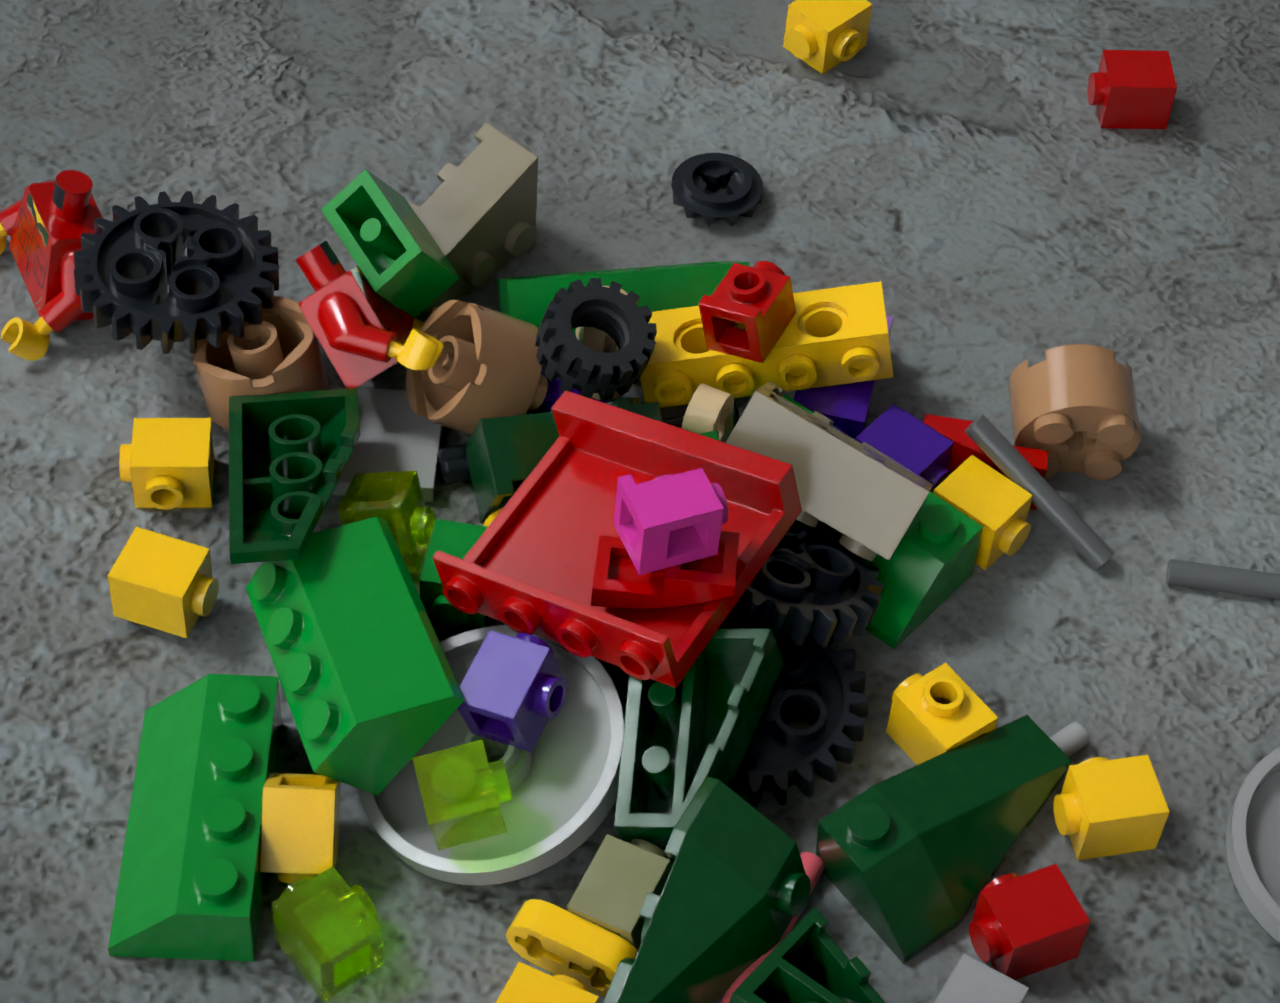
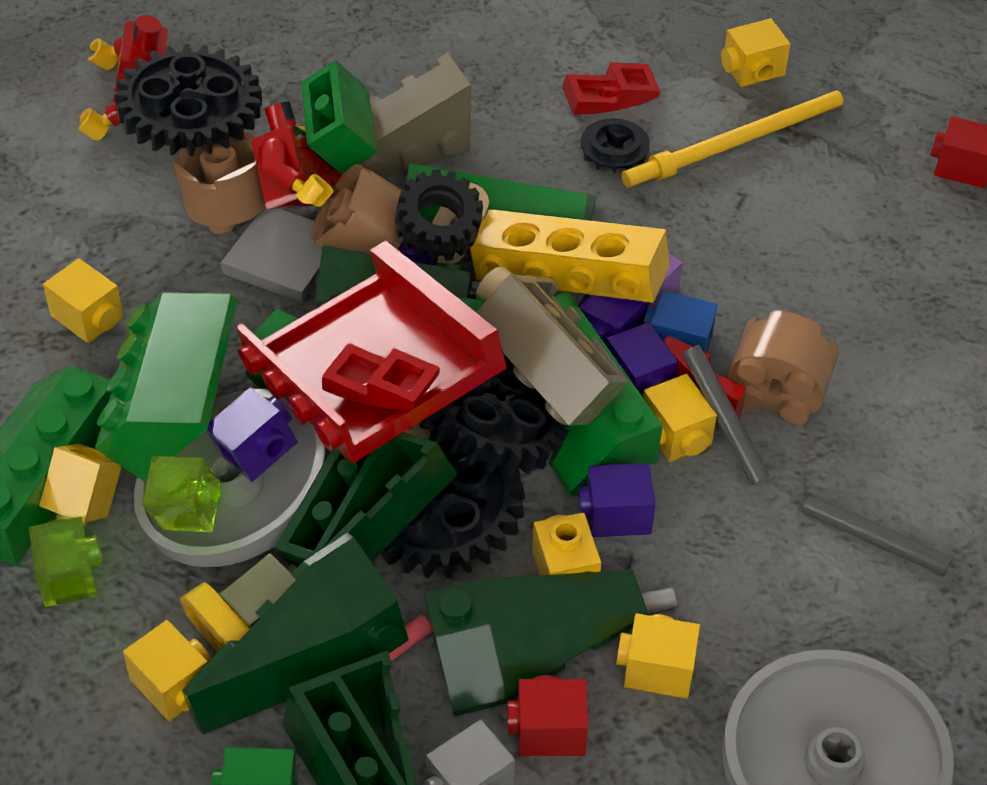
camera: 25 degrees right, 0 degrees up
(170, 463) = (137, 227): yellow brick -> none
(285, 468) = (186, 244): dark green wedge -> none
(397, 500) = (256, 292): clear neon green brick -> none
(669, 519) = (385, 341): dark pink brick -> none
(680, 115) = (620, 88): none -> red slope
(752, 296) = (555, 224): red brick -> none
(793, 195) = (666, 163): none -> yellow bar
(925, 387) = (683, 319): none -> blue brick
(967, 631) = (618, 500): none -> dark purple brick

